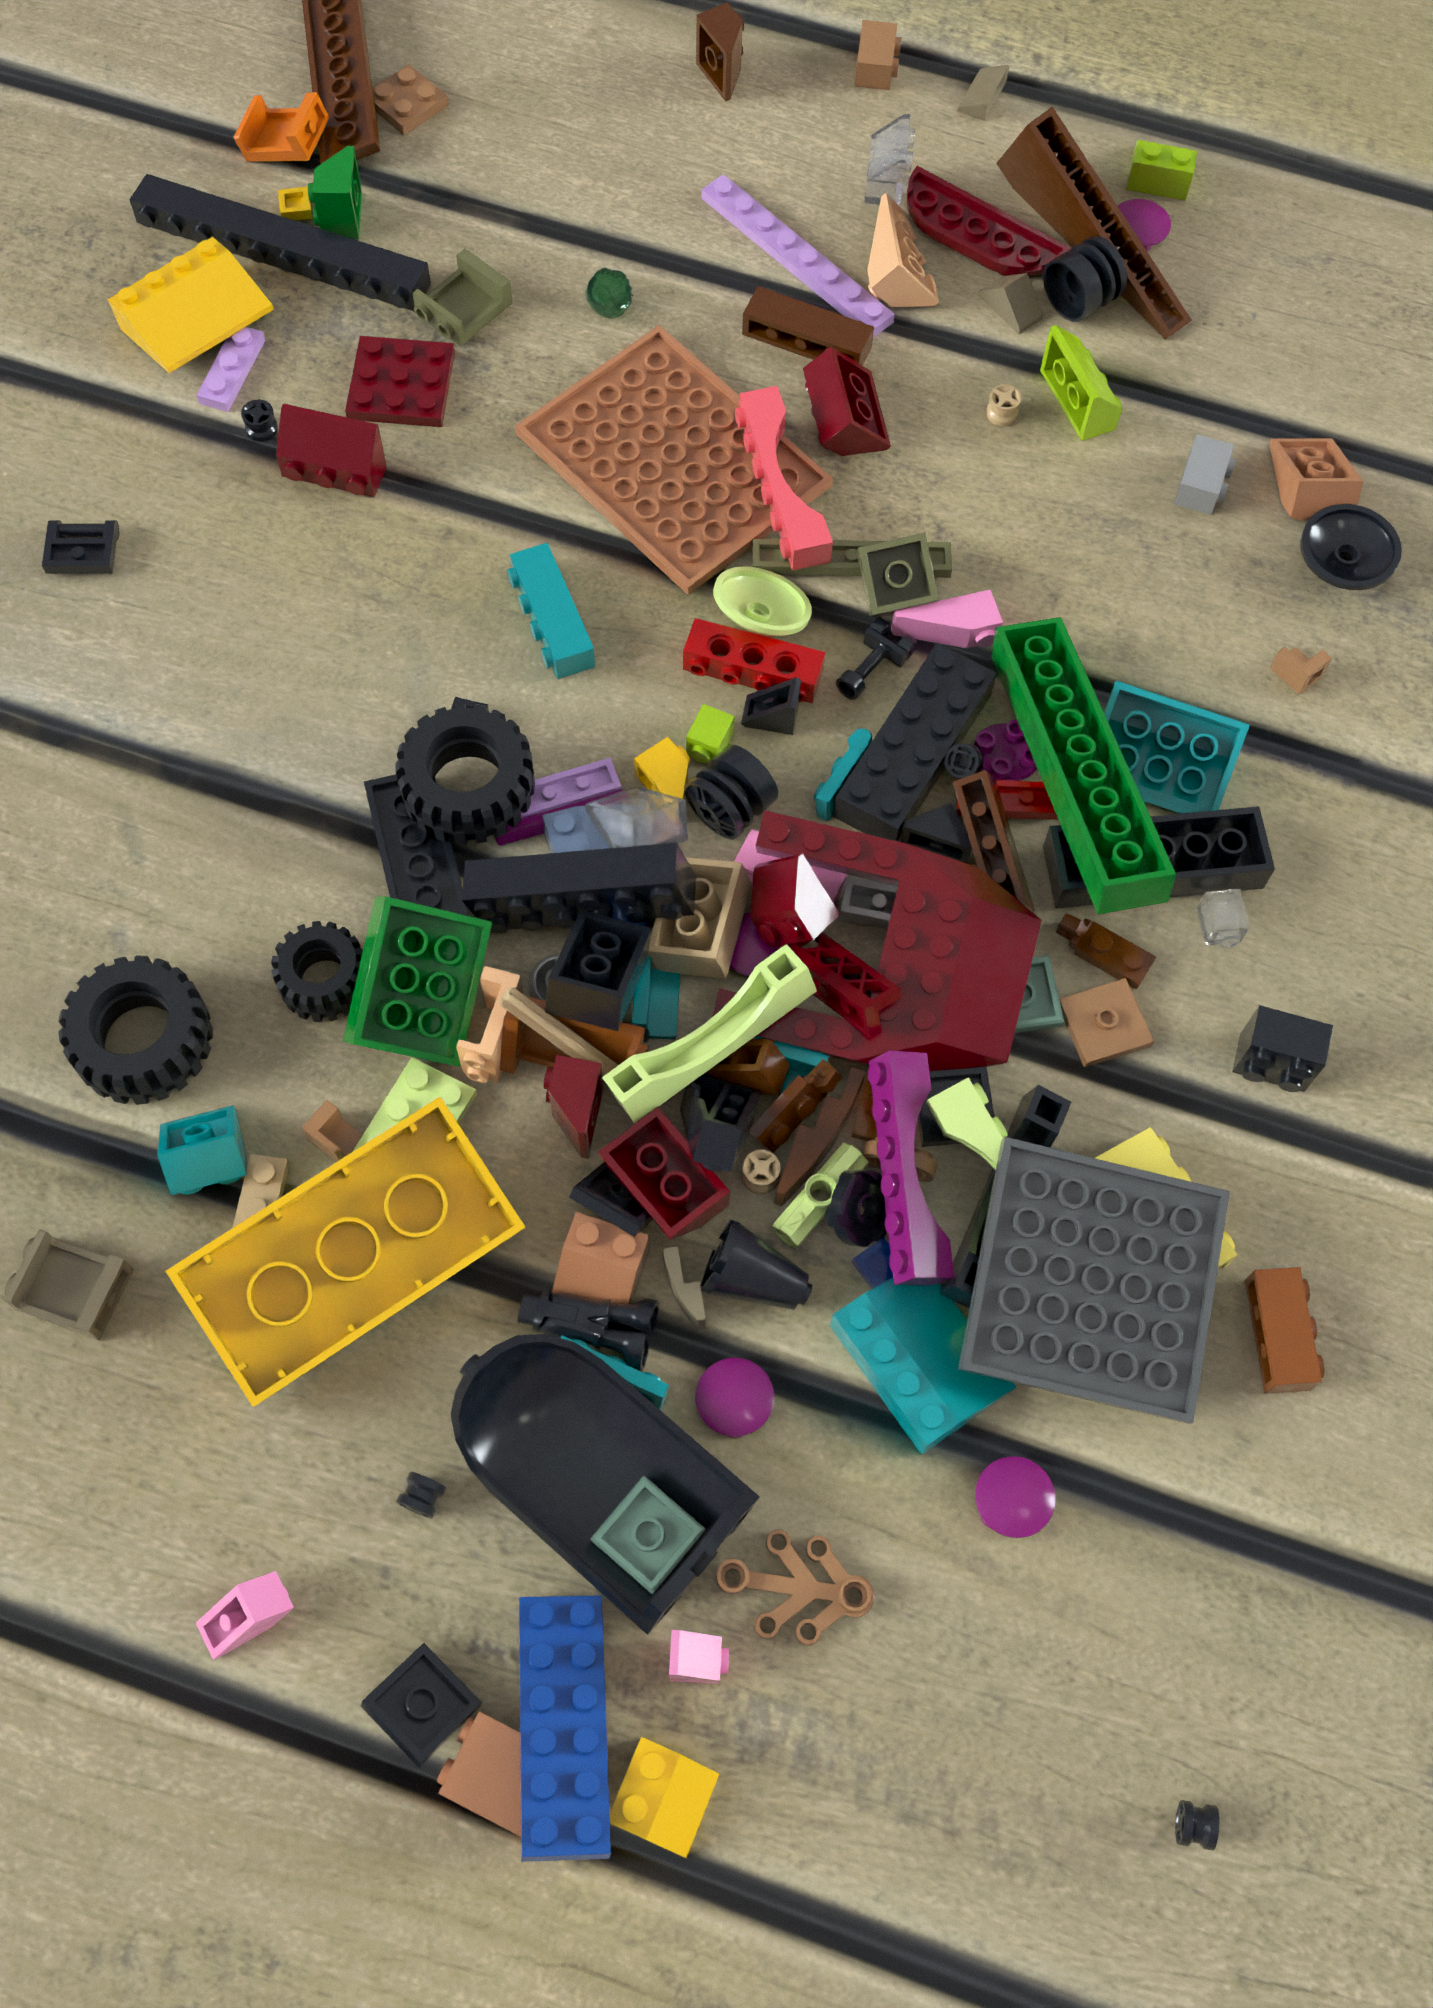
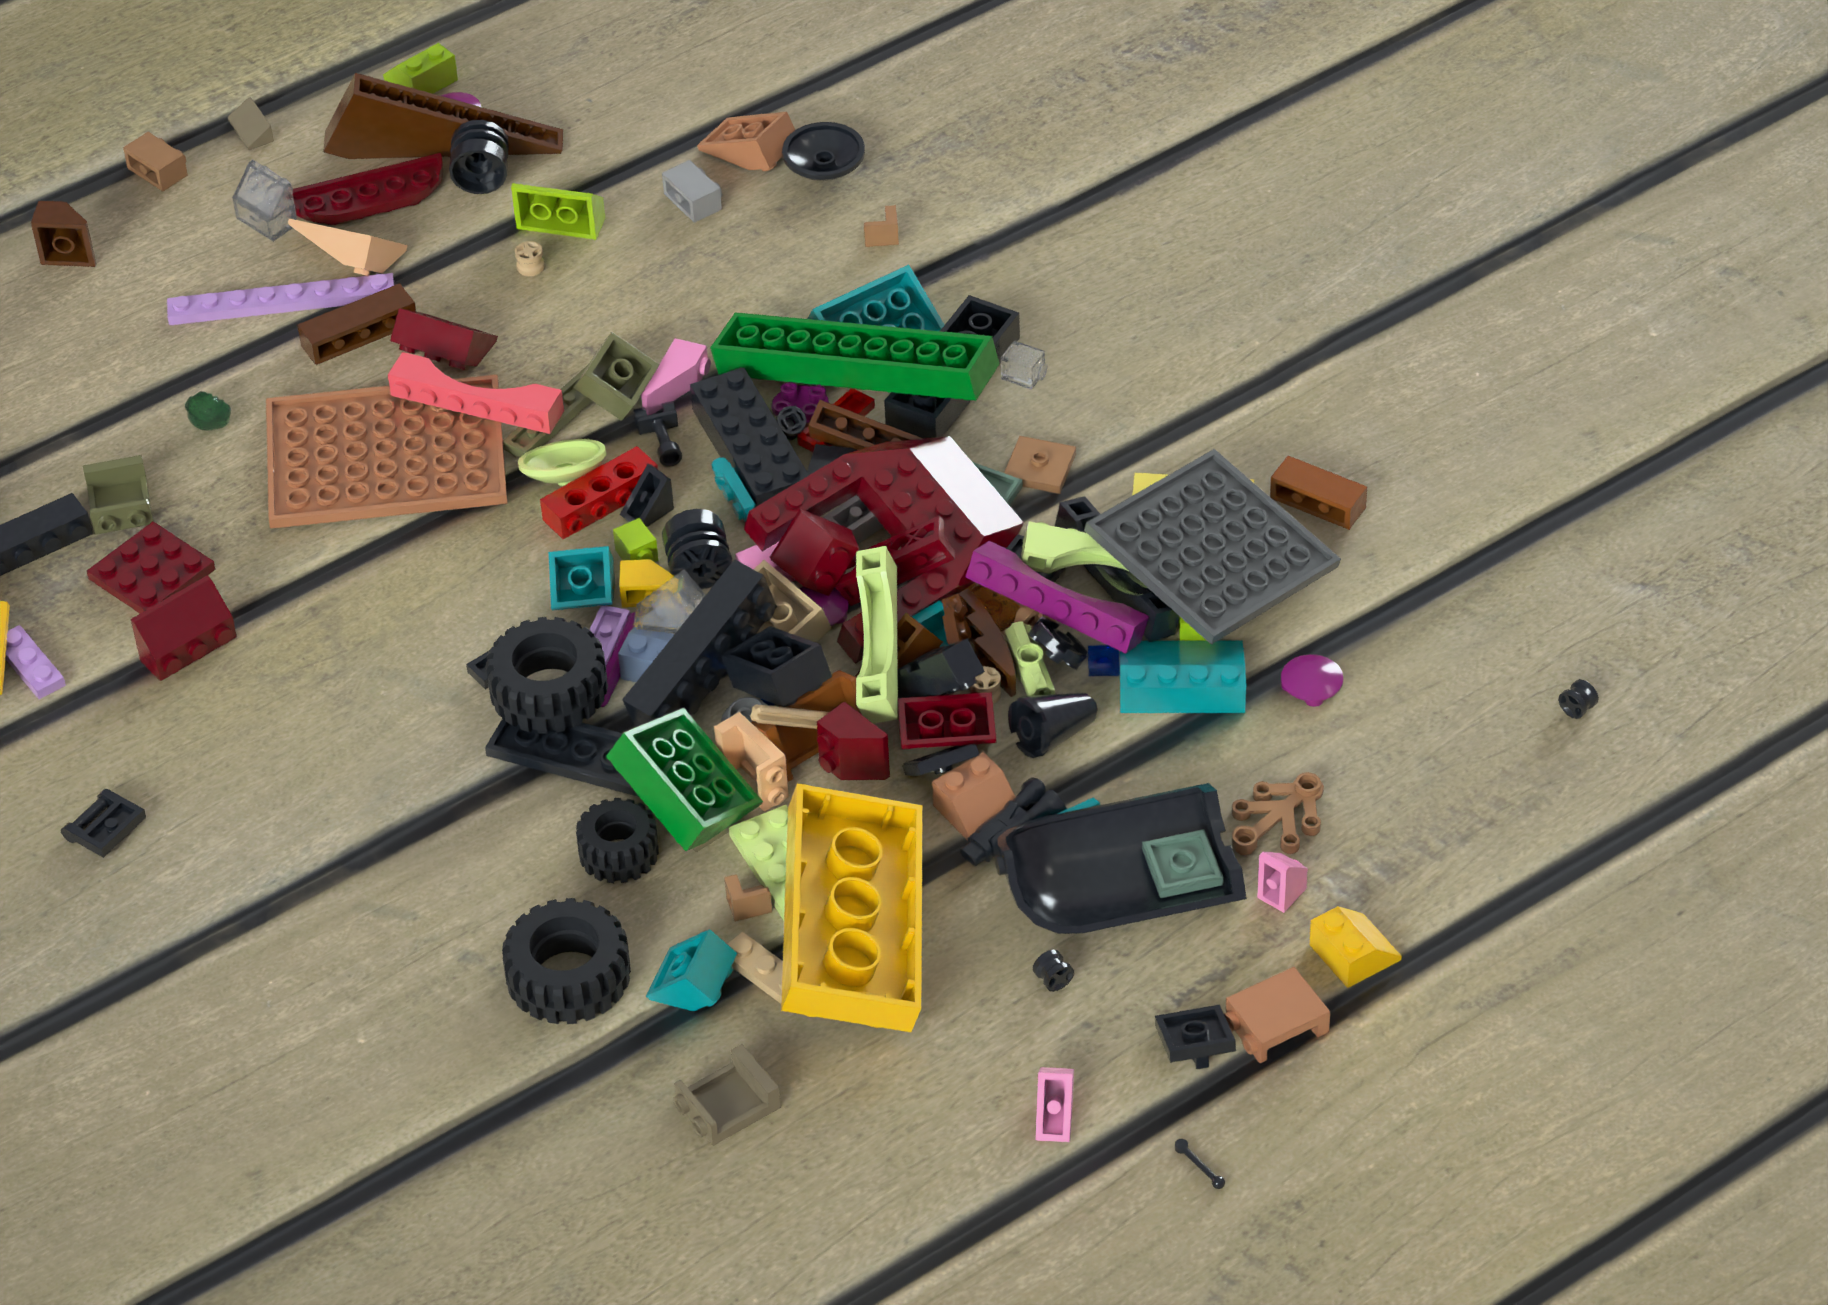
camera: 50 degrees left, 20 degrees down
(253, 414) = (101, 664): black wheel -> none
(276, 1784) = (1181, 1147): none -> black hinge
(551, 610) = (447, 578): teal brick -> none
(563, 1730) = (1271, 958): blue plate -> none
(623, 721) = (581, 578): none -> teal slope
(688, 1294) = (1041, 764): dark tan slope -> none
(734, 1397) = (1126, 779): magenta dish -> none
(1013, 301) = (446, 207): dark tan slope -> none
(1106, 949) = (991, 435): reddish brown hinge -> none
(1282, 1049) = (1140, 383): black brick -> none

